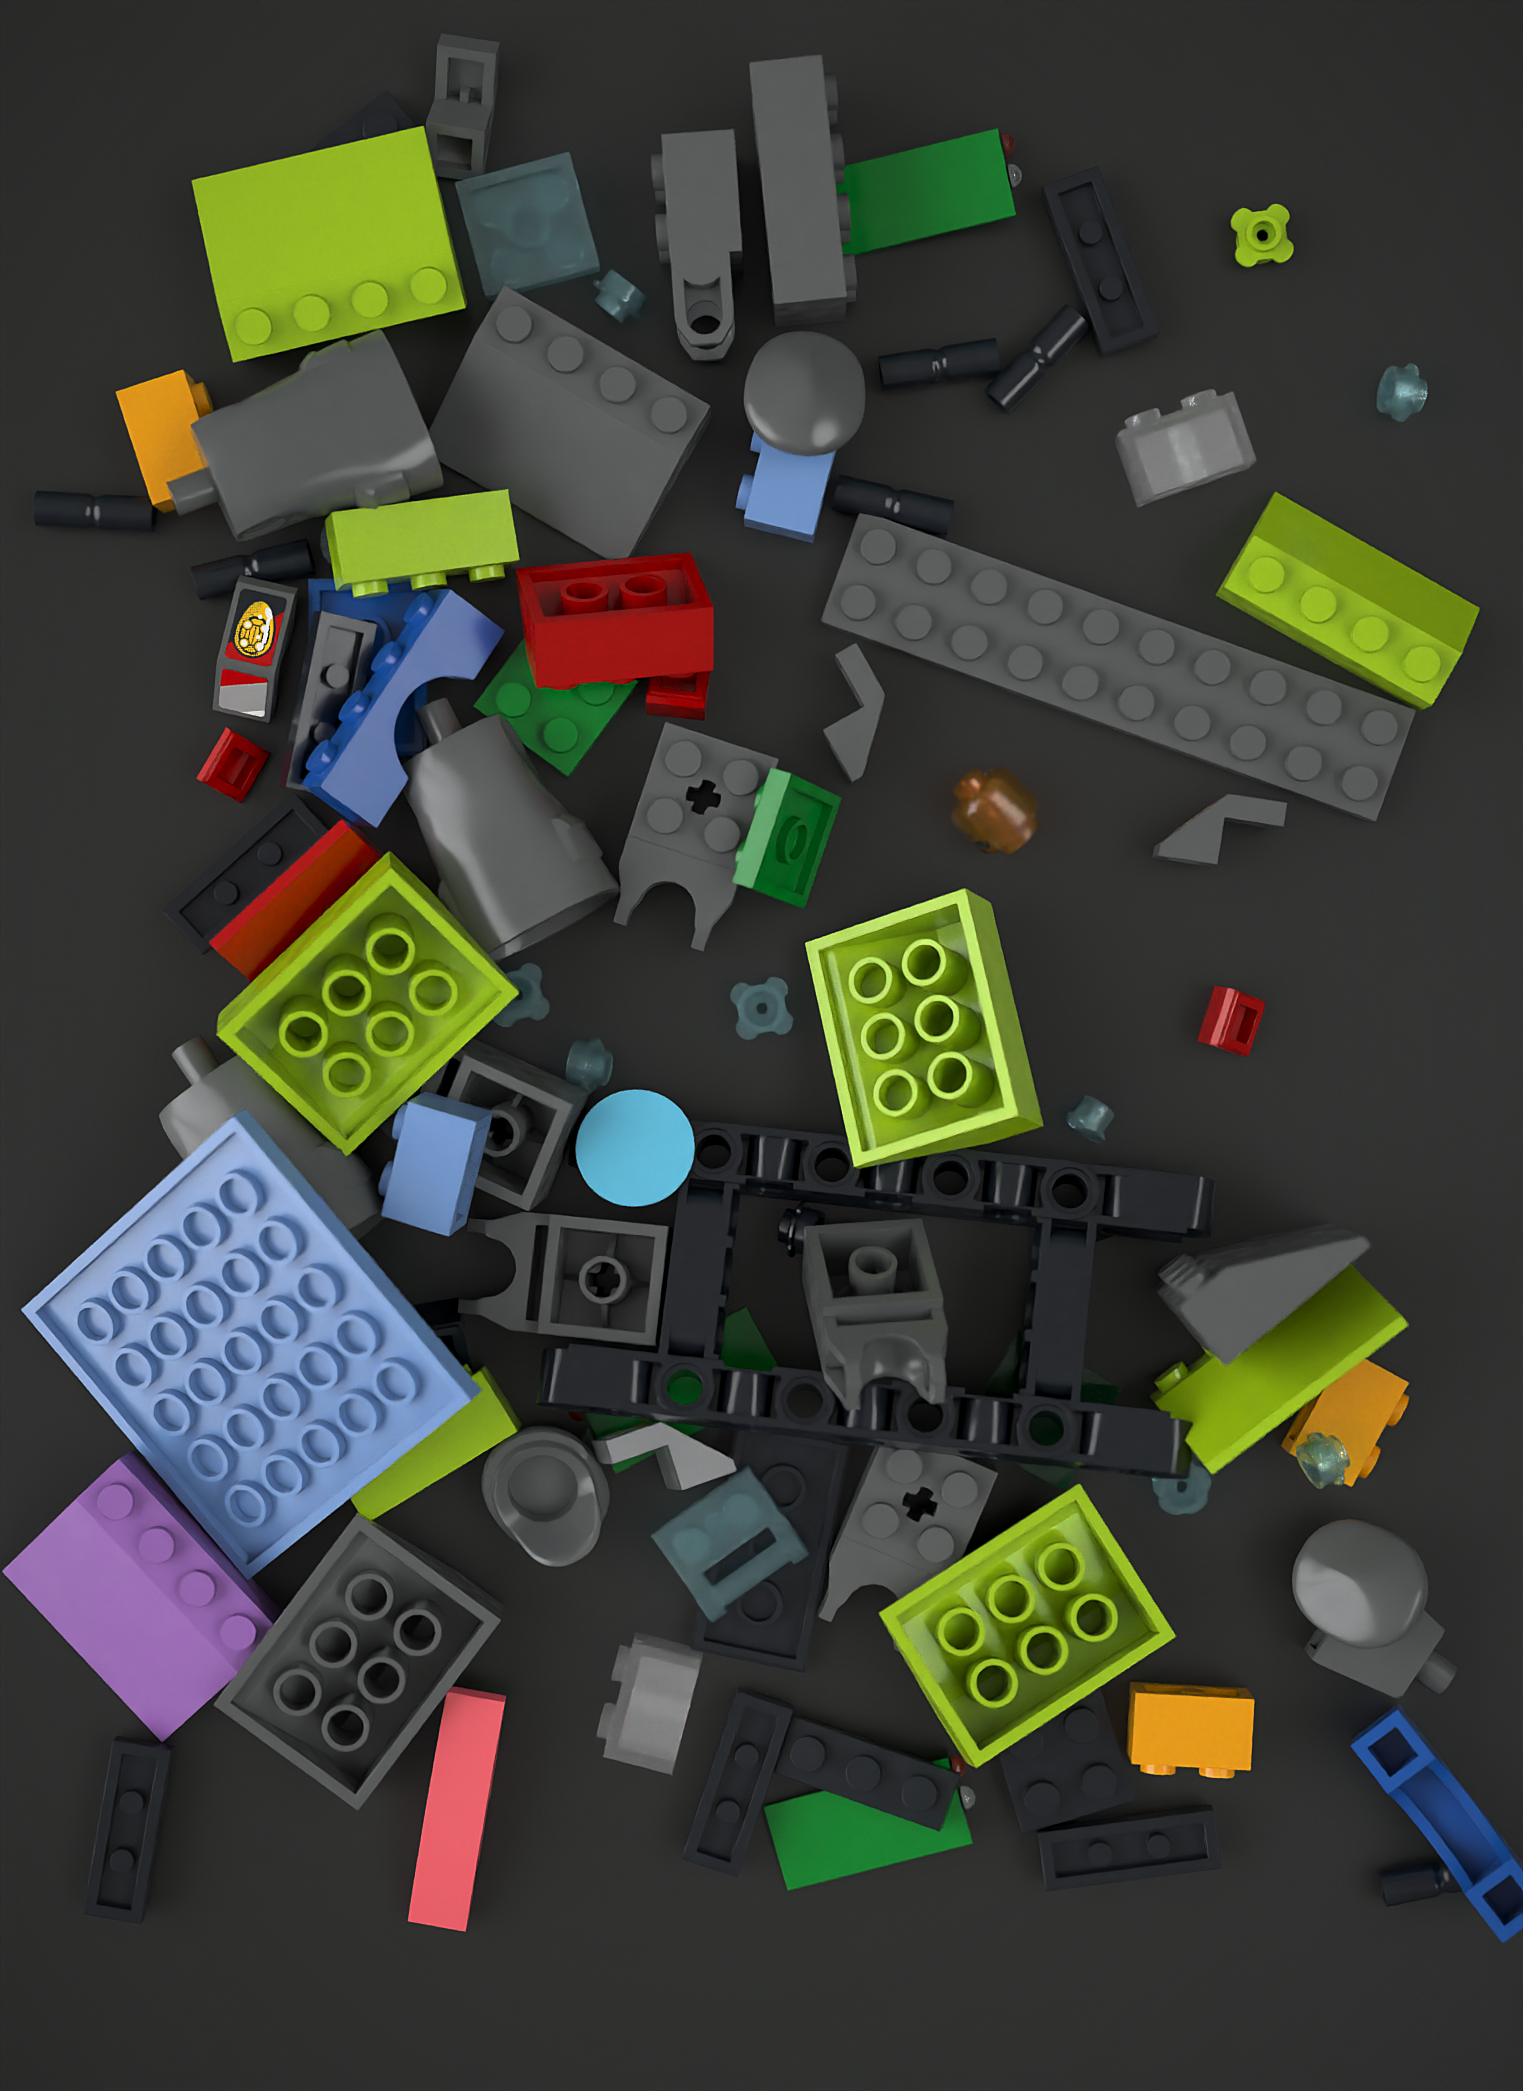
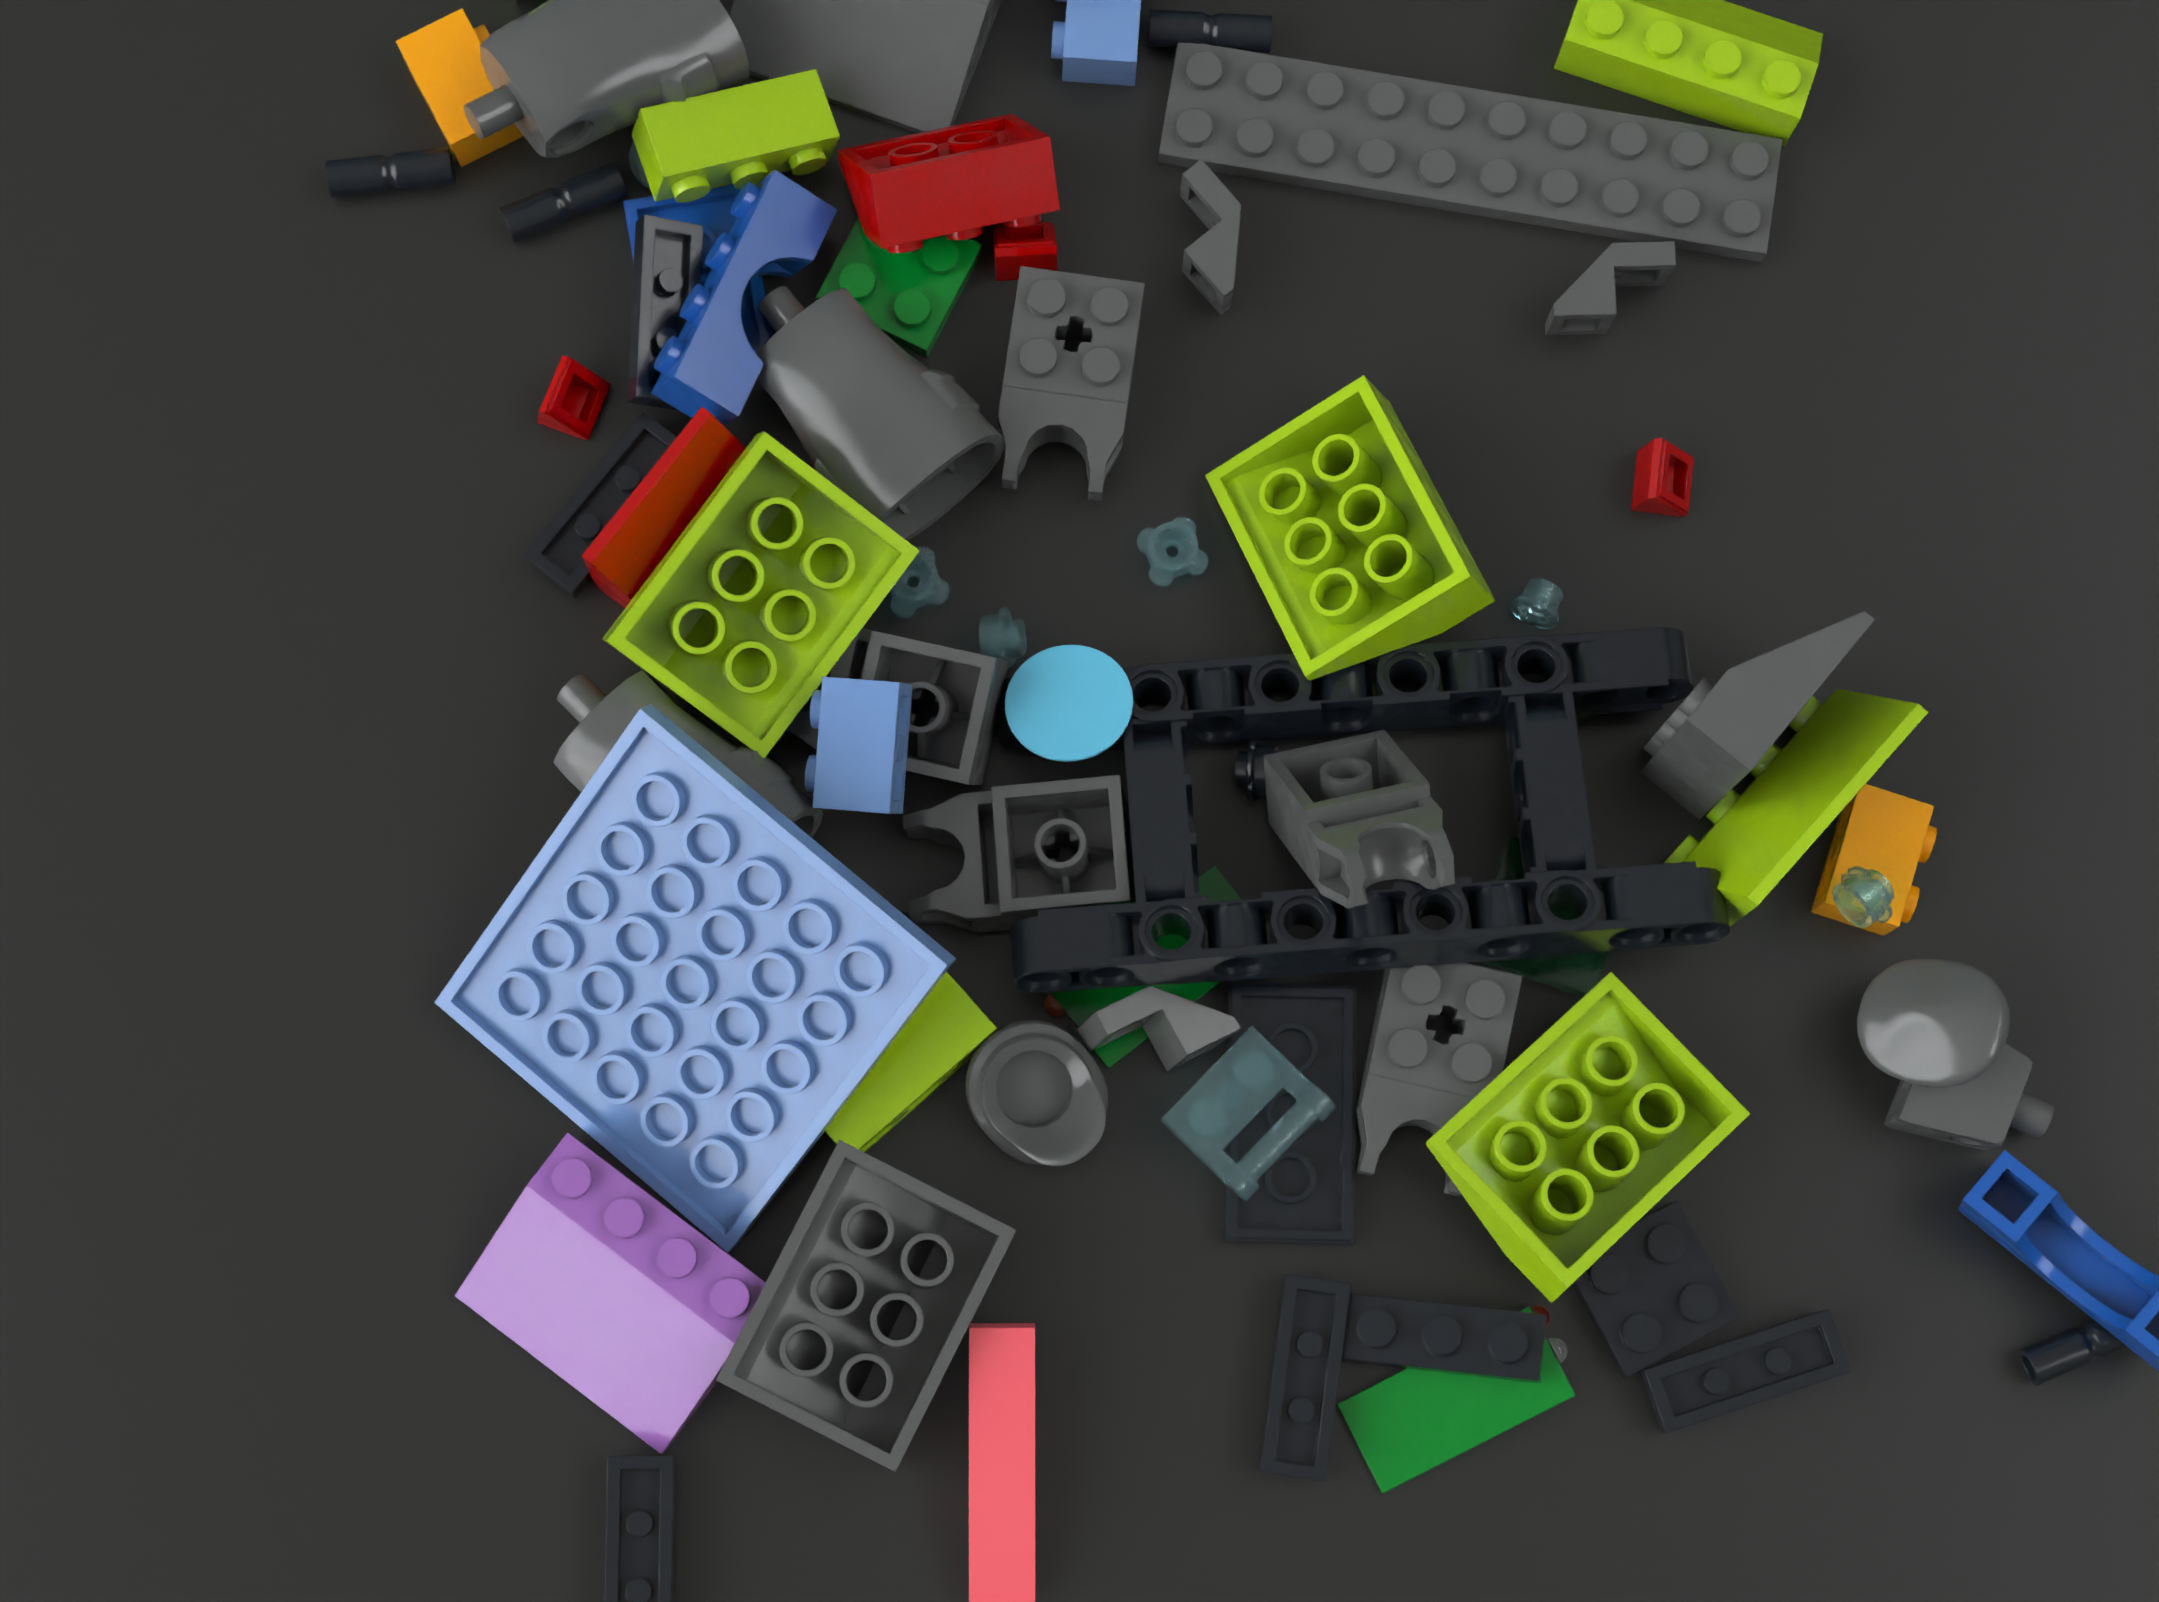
camera: 10 degrees left, 10 degrees down
(253, 648) = (577, 277): slope -> none
(651, 1704) = (1194, 1305): clear brick -> none
(786, 838) = (1167, 363): green plate -> none
(994, 810) = (1375, 307): clear orange head -> none
(1190, 1500) = (1733, 967): clear light blue plate -> none
(1190, 1728) = (1783, 1224): light orange brick -> none

